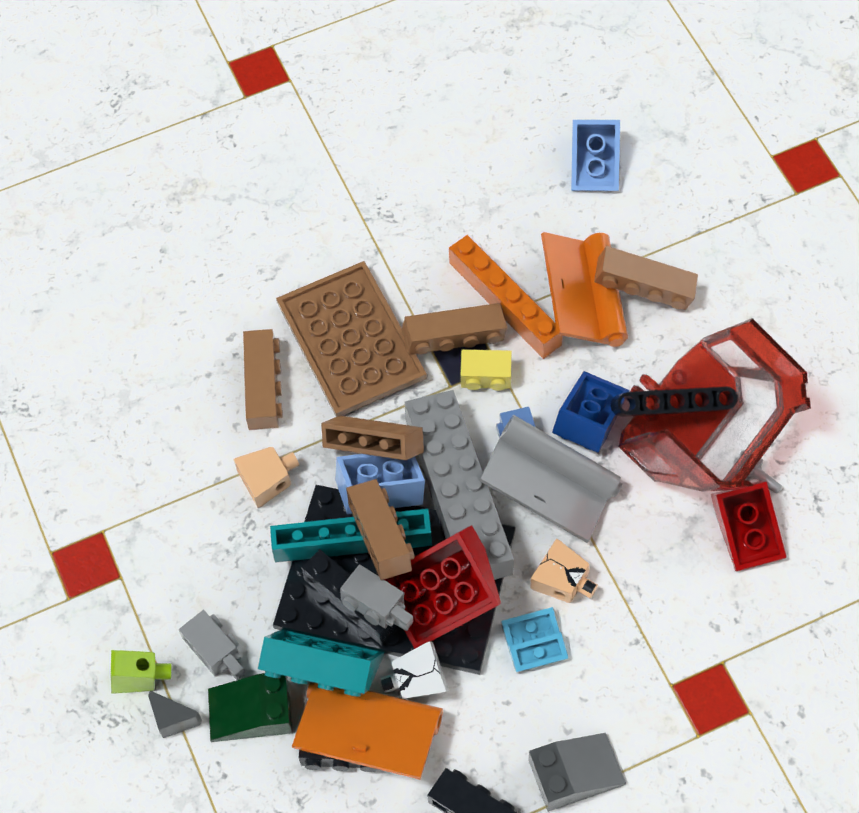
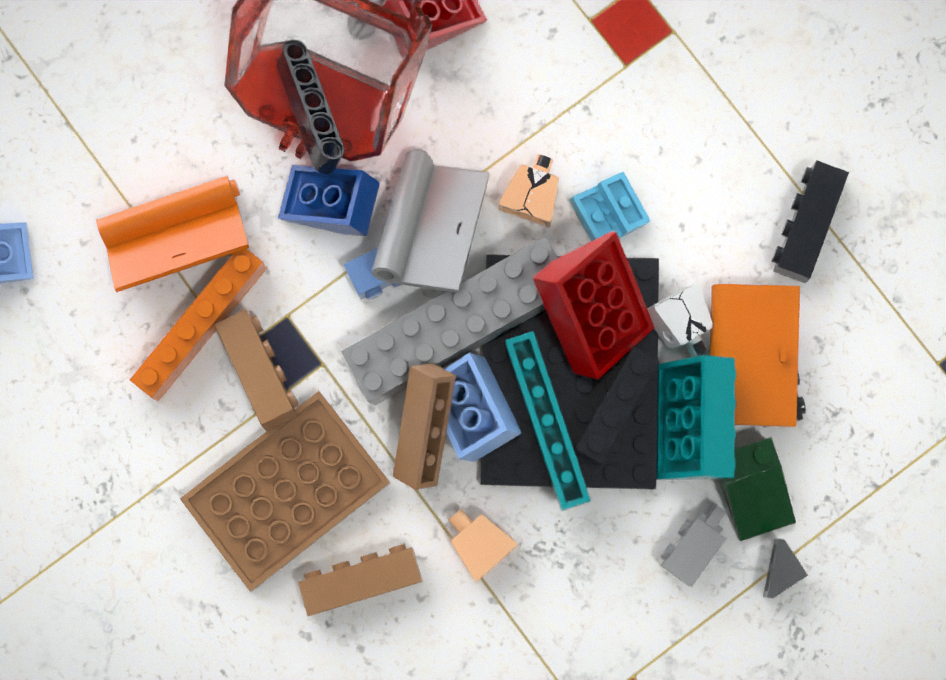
camera: 100 degrees left, 20 degrees up
(136, 671) = (749, 632): lime torso -> none
(375, 599) = (630, 368): light grey hinge -> none
(379, 529) = (551, 381): medium nougat brick -> none
(486, 369) = (299, 325): light yellow brick -> none
(575, 769) = (742, 141): dark grey slope -> none
(646, 278) = (153, 164): medium nougat brick -> none

